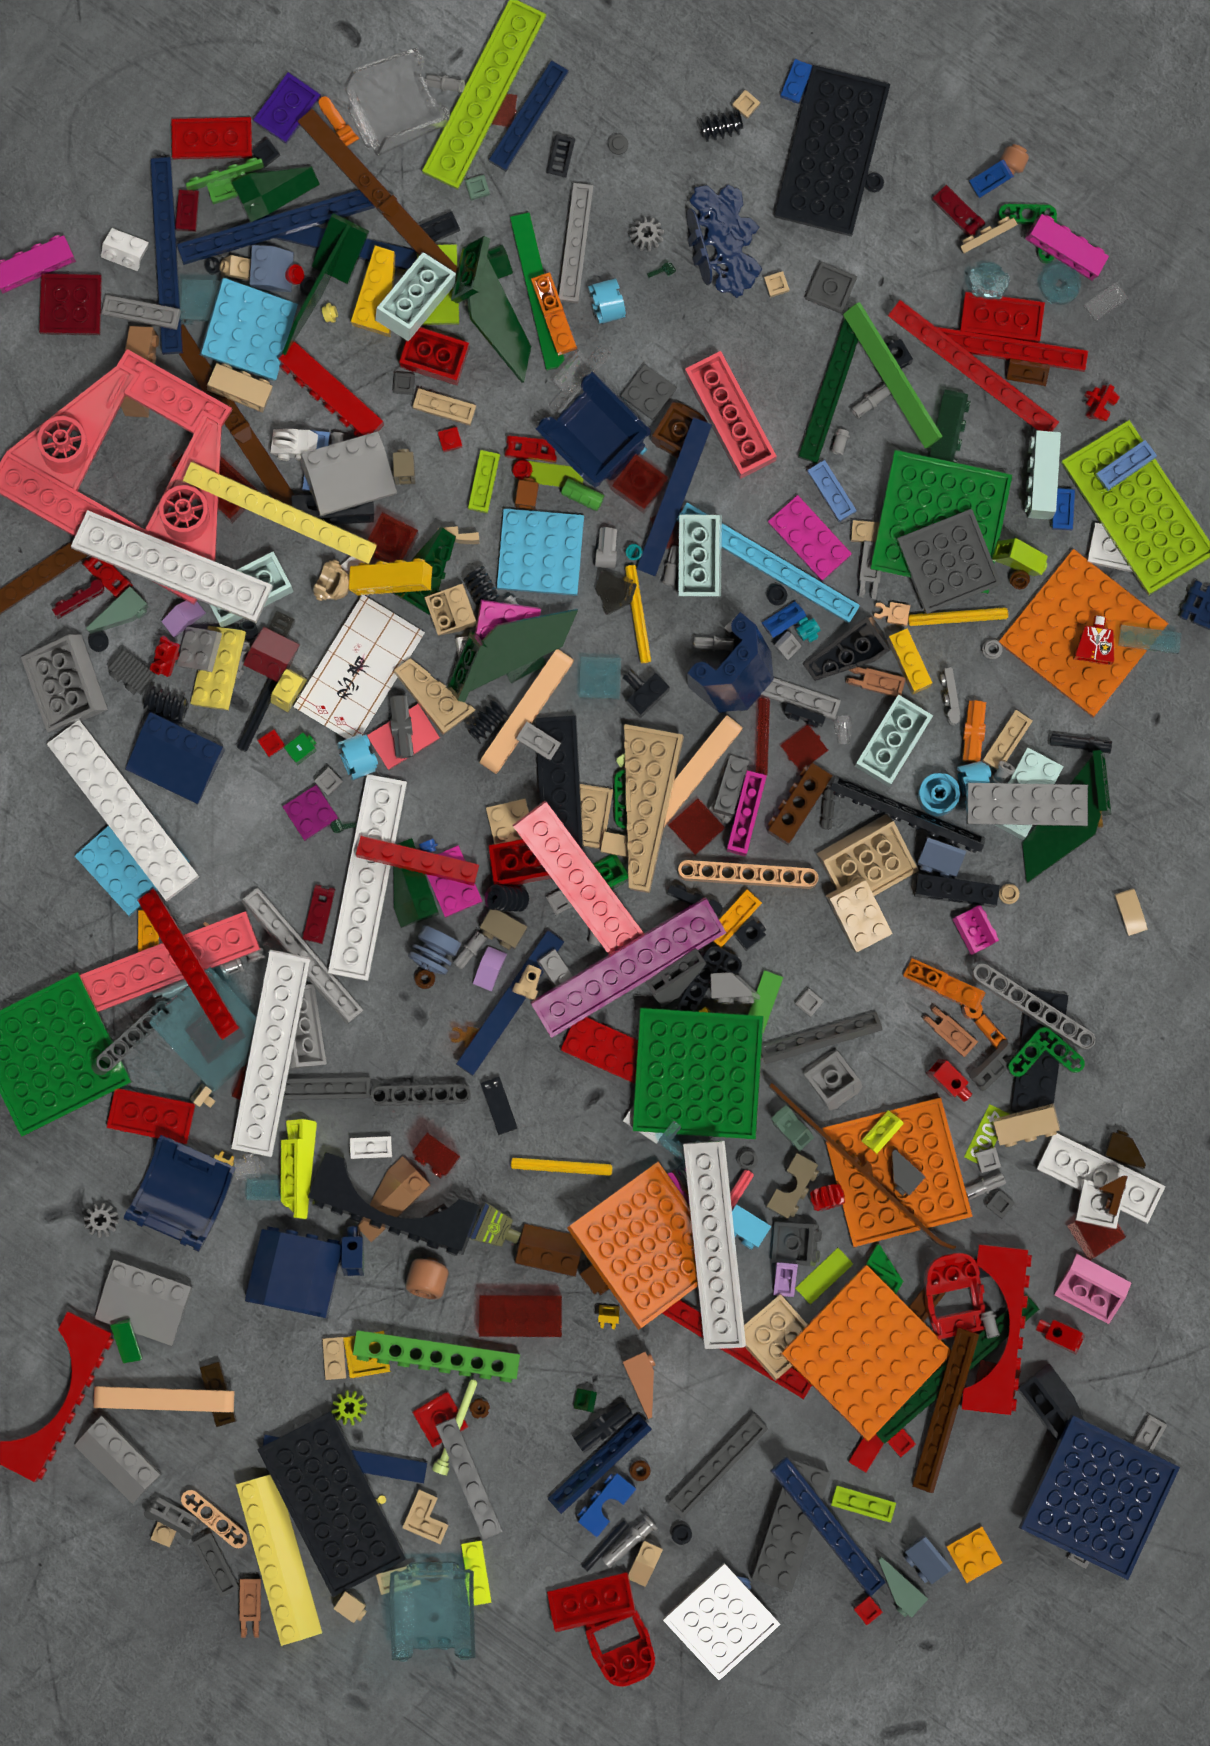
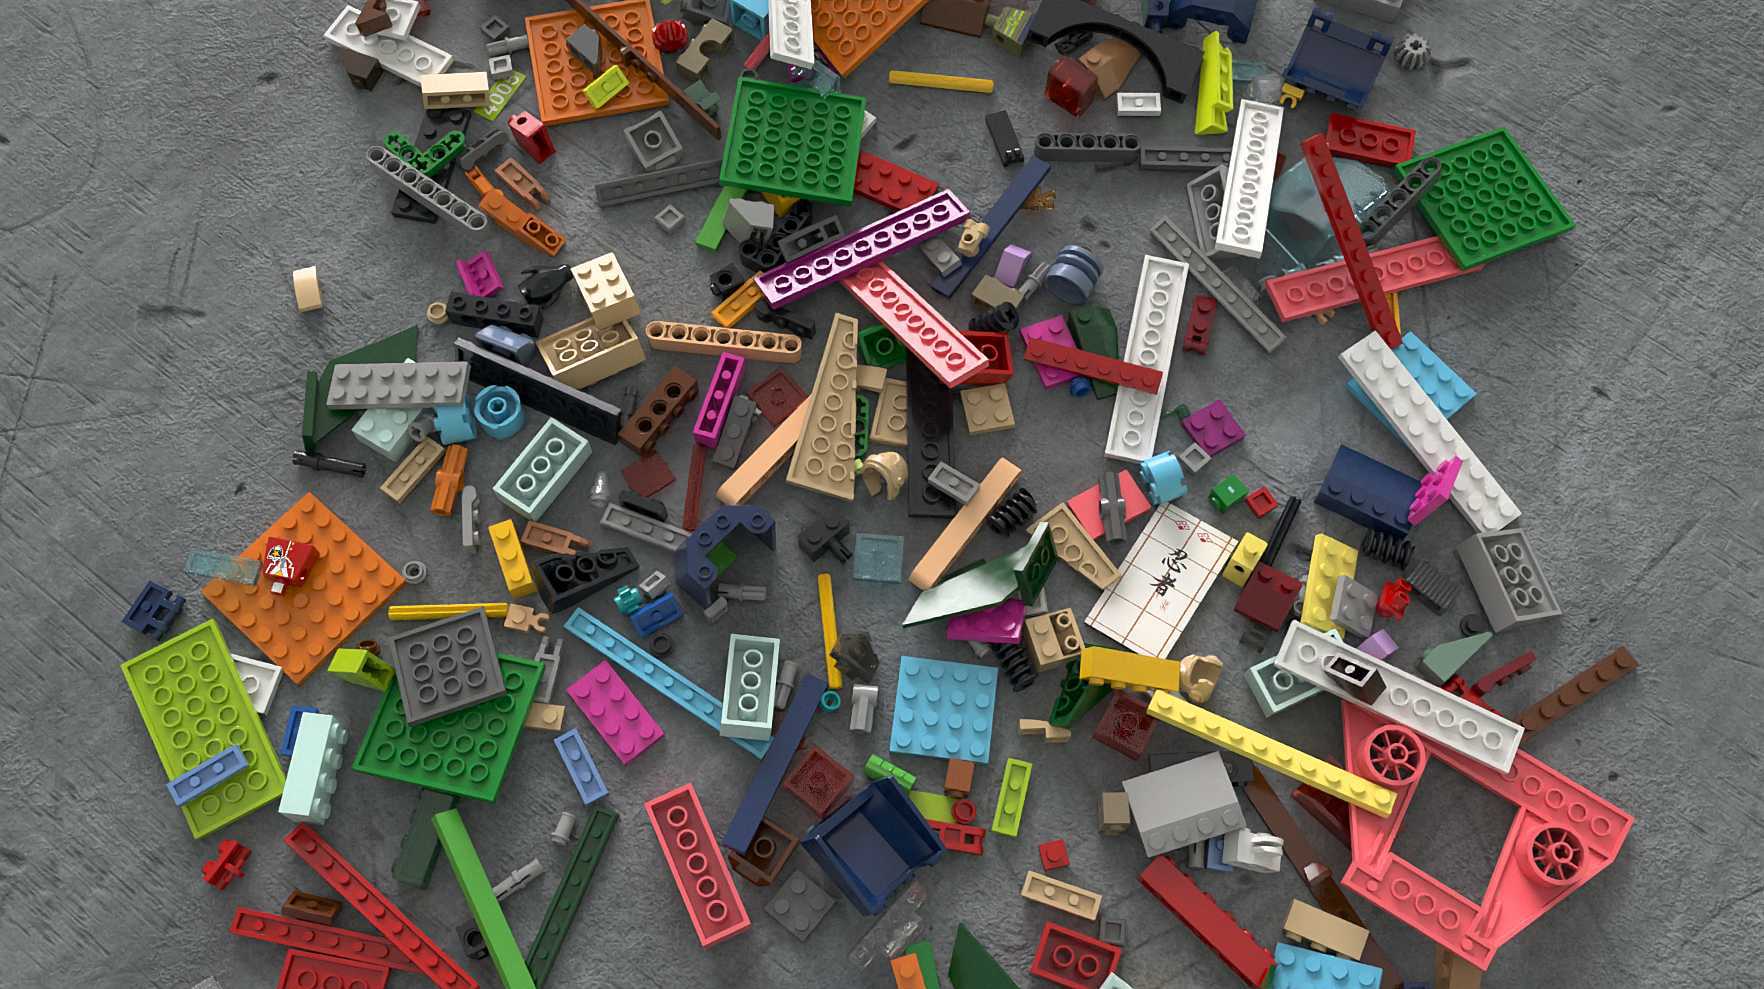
camera: 175 degrees left, 15 degrees down
(126, 746) = (1434, 490): none -> dark pink plate
(209, 572) = (1356, 678): none -> dark brown slope
(596, 753) = (888, 465): none -> tan helmet
(915, 924) = (544, 283): none -> black animal

